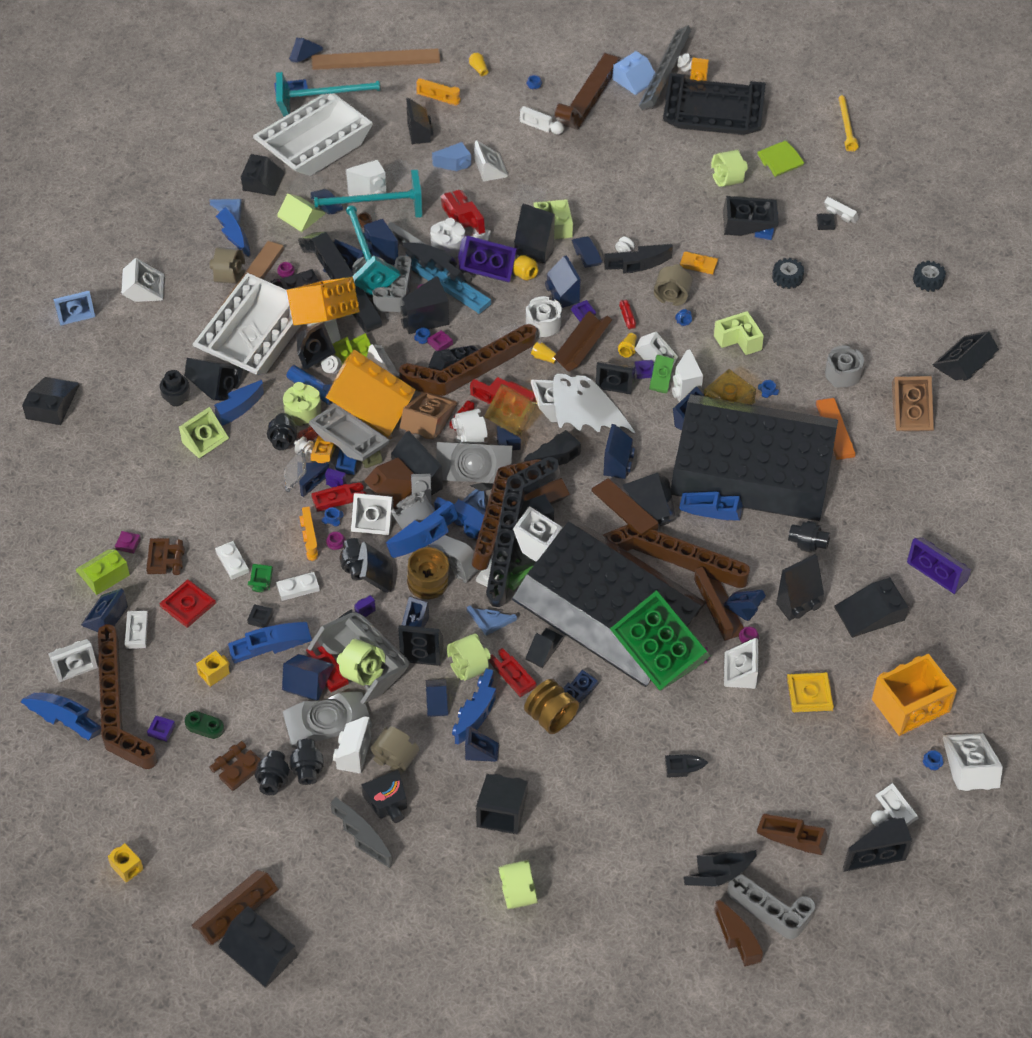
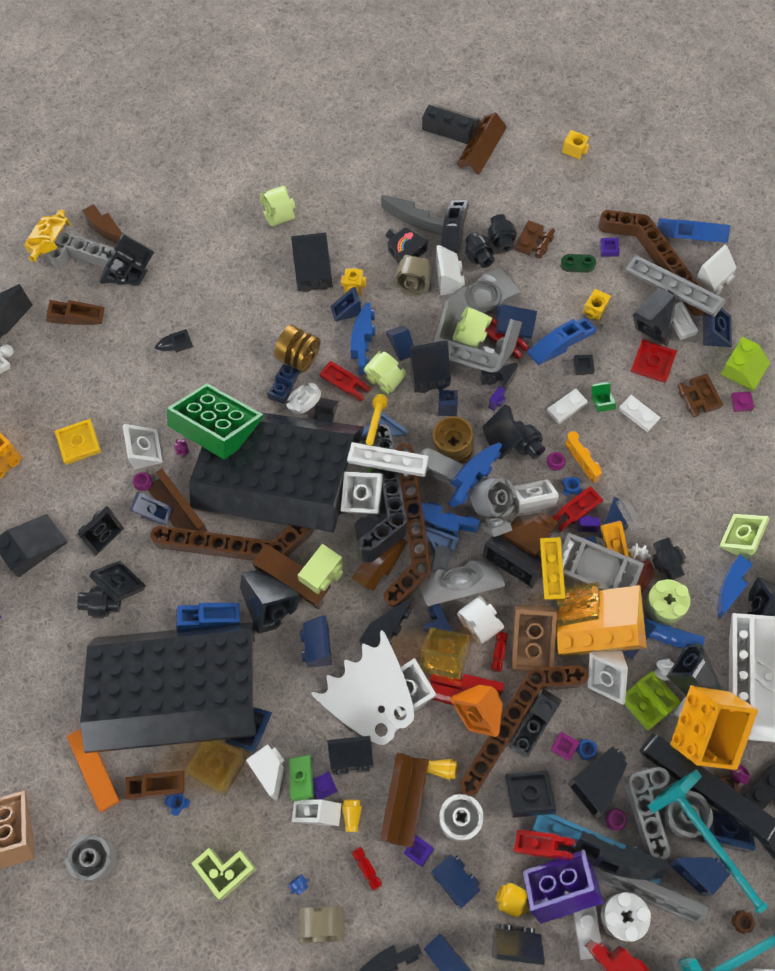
camera: 165 degrees right, 15 degrees up
(126, 651) = (679, 286): none -> light grey plate
(163, 629) = (656, 316): none -> black slope
(320, 800) = (453, 225): none -> black slope
(381, 410) = (579, 605): none -> clear yellow slope
(391, 434) = (552, 568): none -> yellow plate
(462, 769) = (353, 278): none -> yellow brick
(482, 319) = (530, 794): none -> black tile
(485, 634) = (379, 403): none -> yellow piece
(488, 285) = (542, 844): none -> red hinge
(498, 366) = (479, 709): none -> orange slope
(502, 542) = (388, 459): none -> white plate
(561, 660) = (303, 398): none -> white tile
(593, 498) = (321, 569): none -> yellowish green brick
(783, 394) = (154, 785): none -> reddish brown slope
(788, 546) = (117, 581): none -> black tile
(798, 946) = (45, 234): none -> yellow plate

